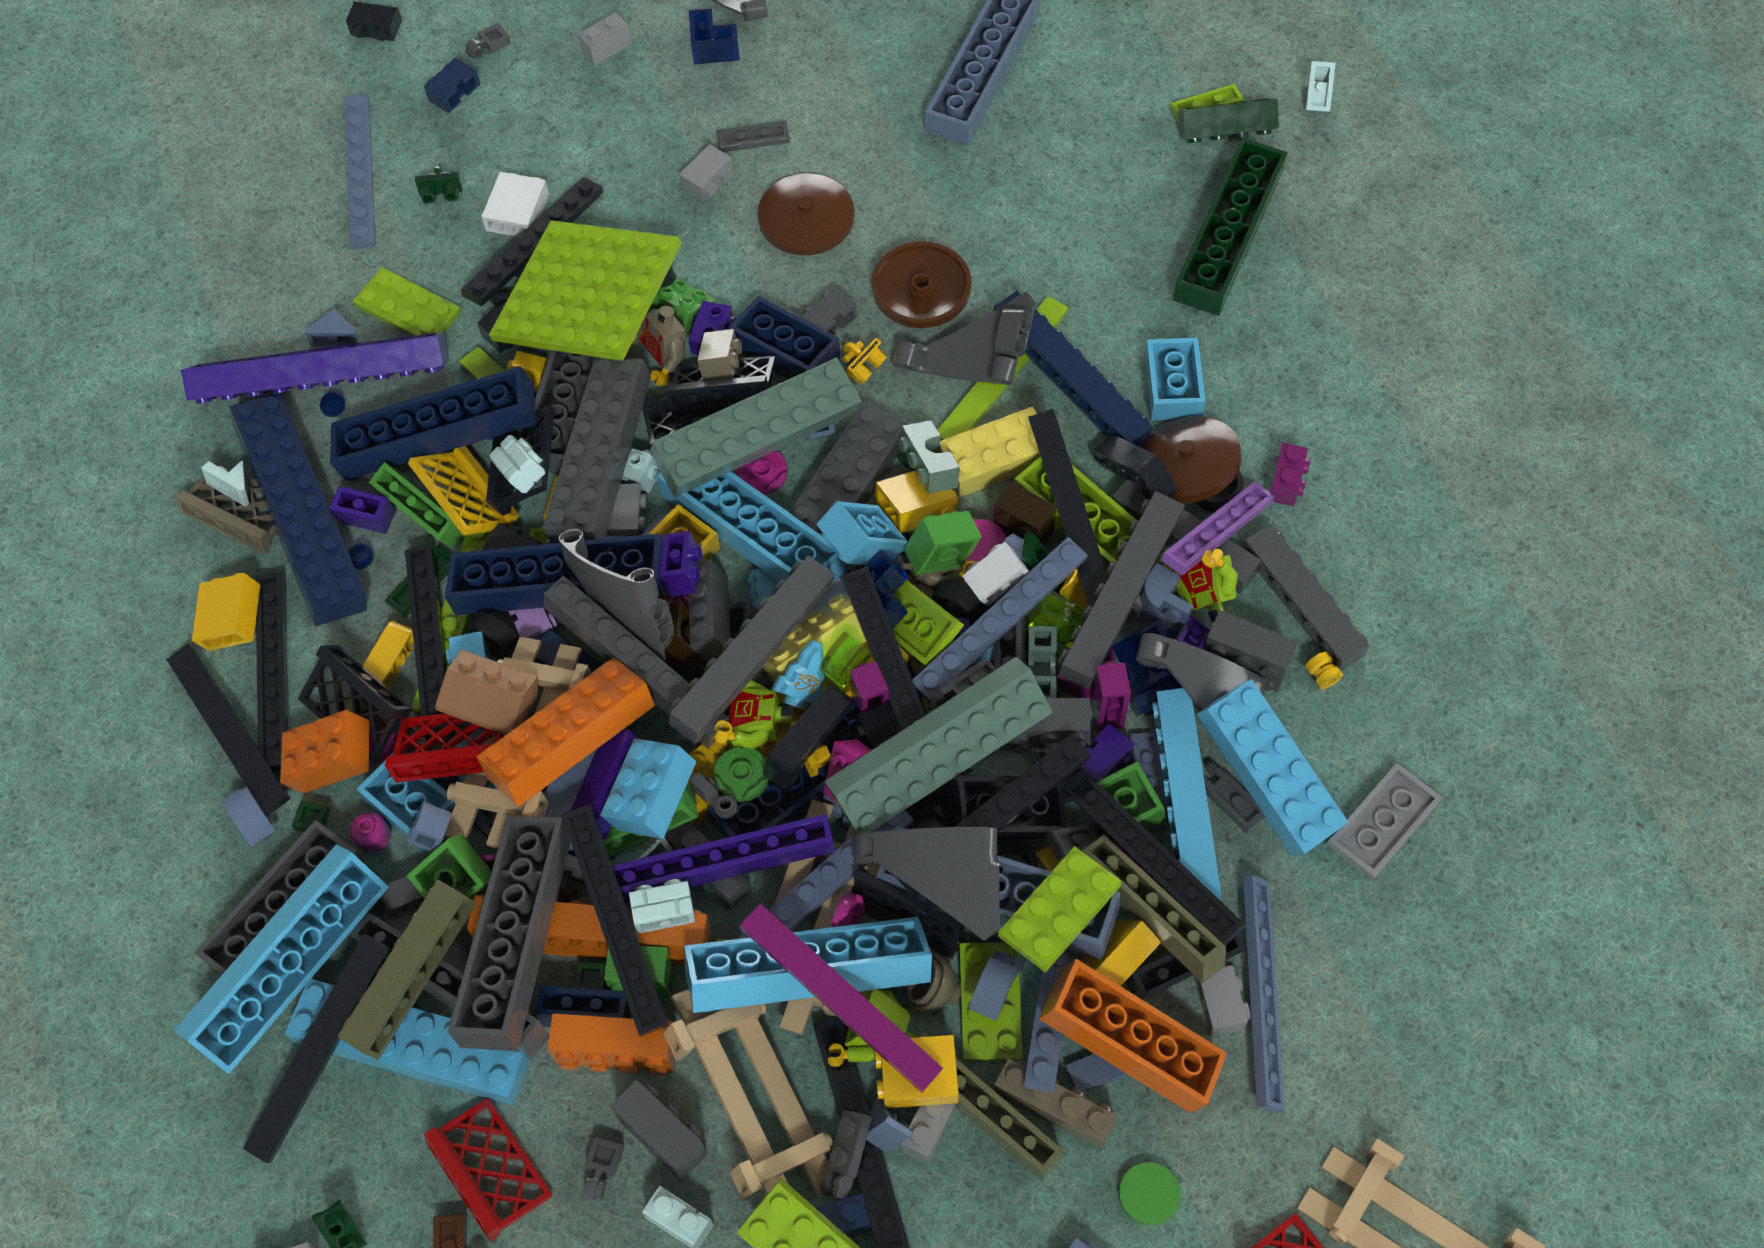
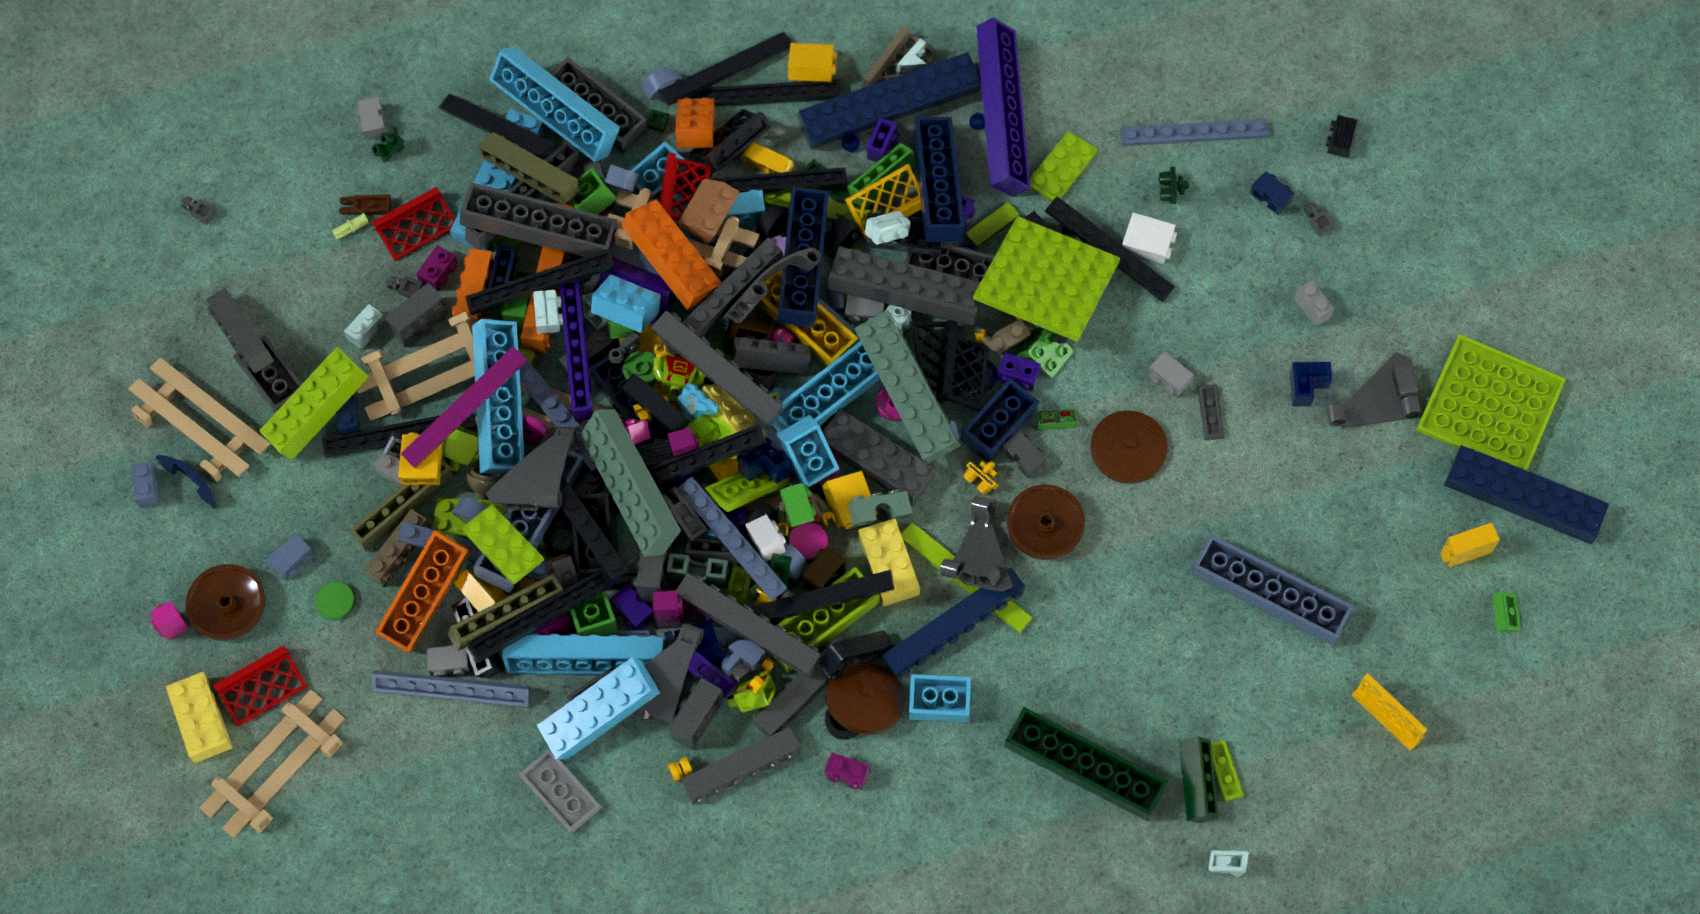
camera: 95 degrees right, 5 degrees up
(331, 331) = (1041, 119): sand blue slope -> none
(370, 832) = (638, 151): dark pink head -> none
(532, 365) = (990, 242): yellow brick -> none
(569, 1116) = (437, 268): none -> magenta brick
(680, 563) = (798, 331): dark purple brick -> none
(719, 355) = (981, 368): dark tan brick -> none
(773, 285) = (1056, 419): none -> slope
(845, 1154) = (384, 420): dark grey hinge -> none
(1217, 528) = (796, 704): medium lavender plate -> none

